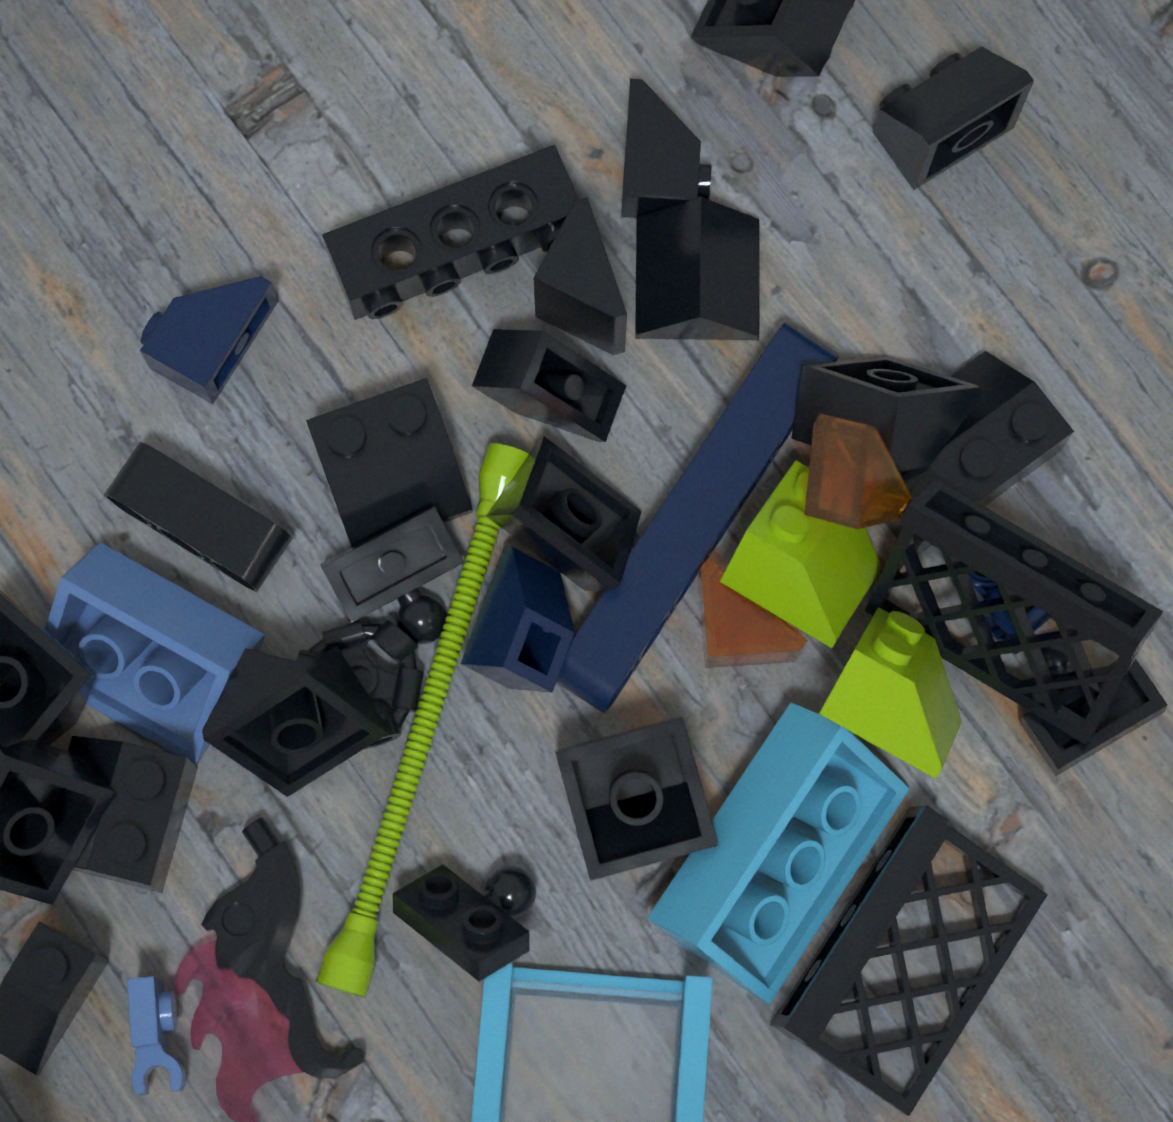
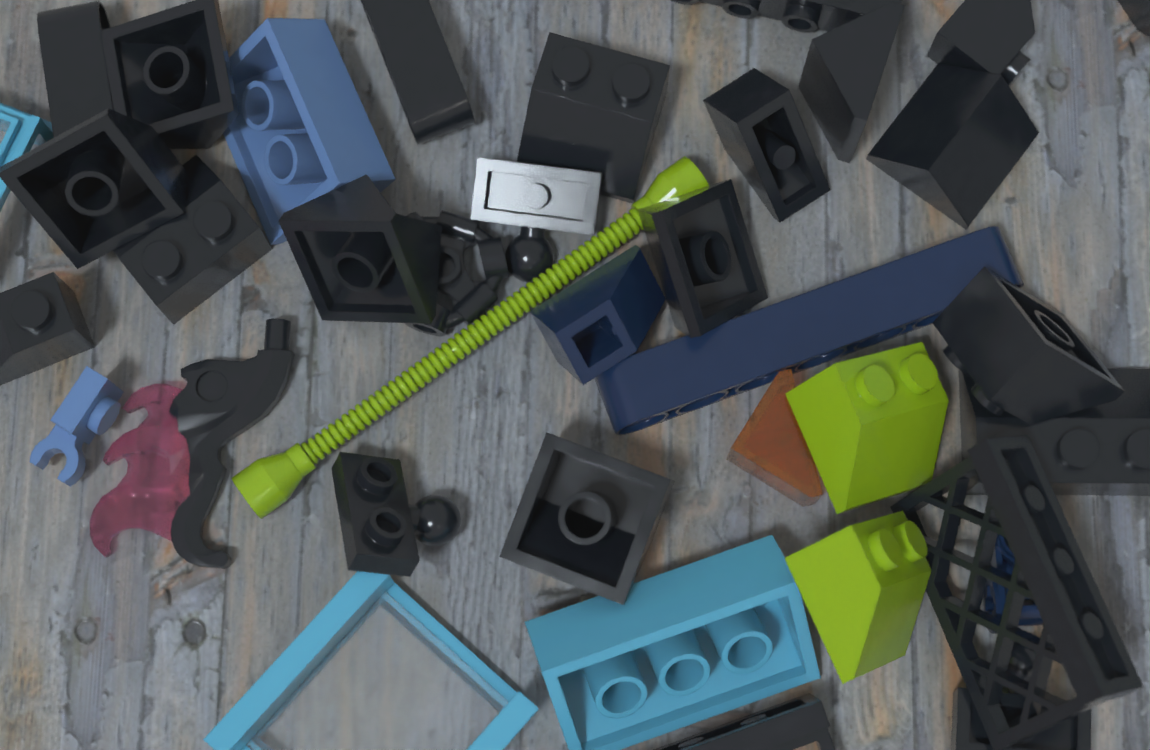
camera: 40 degrees right, 0 degrees up
(852, 476) = (957, 381): clear orange slope -> none

